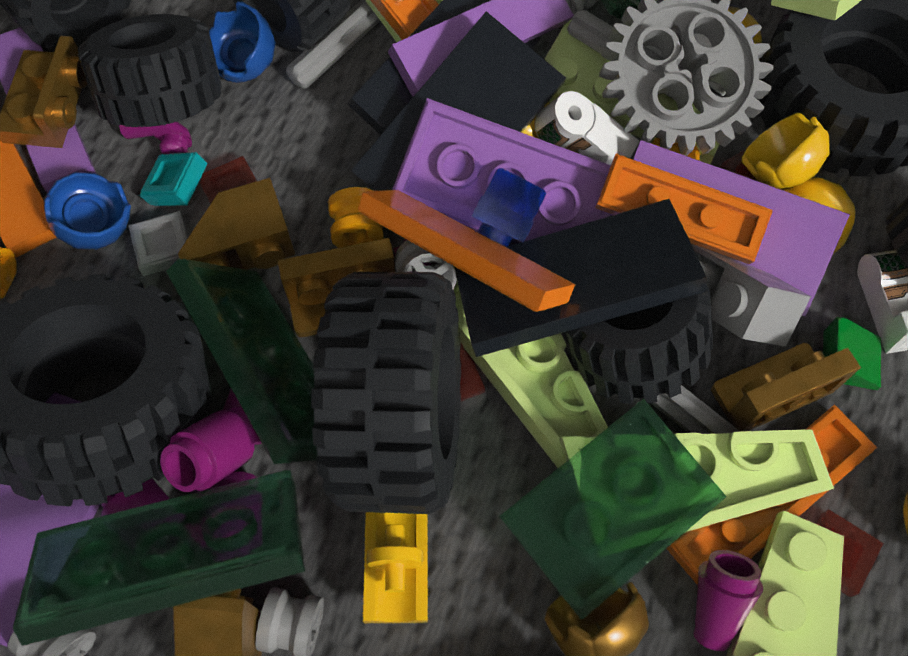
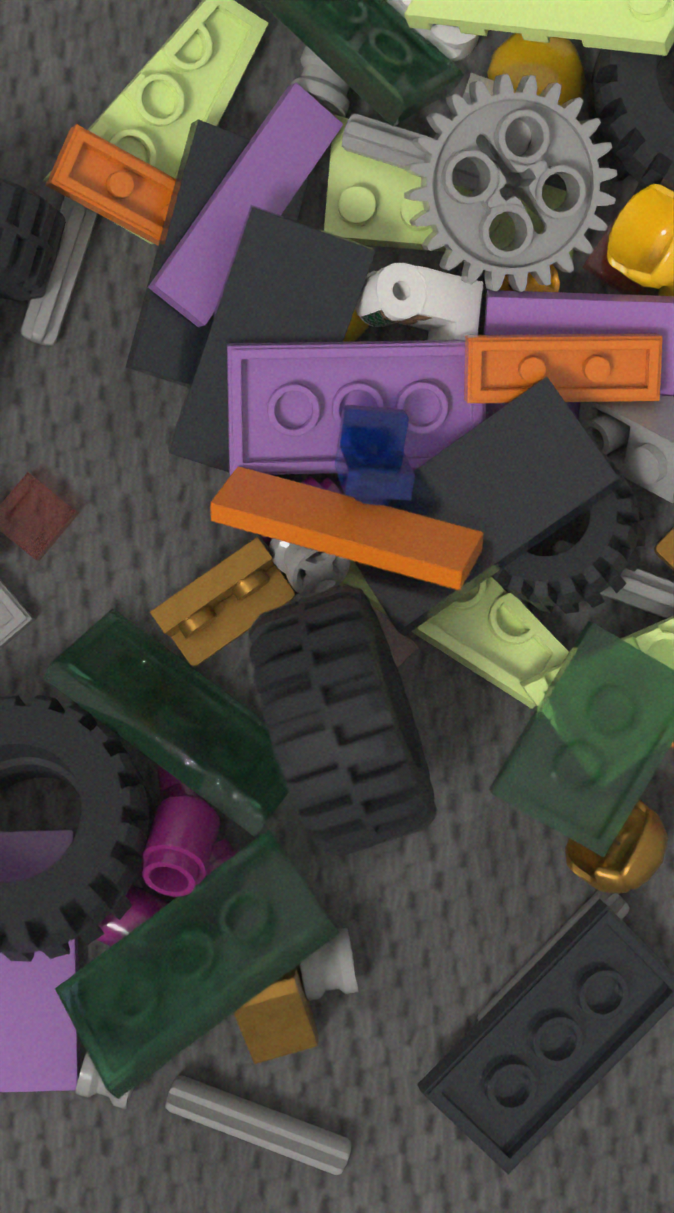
camera: 15 degrees left, 20 degrees up
(241, 230) = (74, 575): pearl gold slope -> none
(349, 224) = (190, 504): light orange wheel -> none
(396, 568) = (410, 882): yellow hips -> none

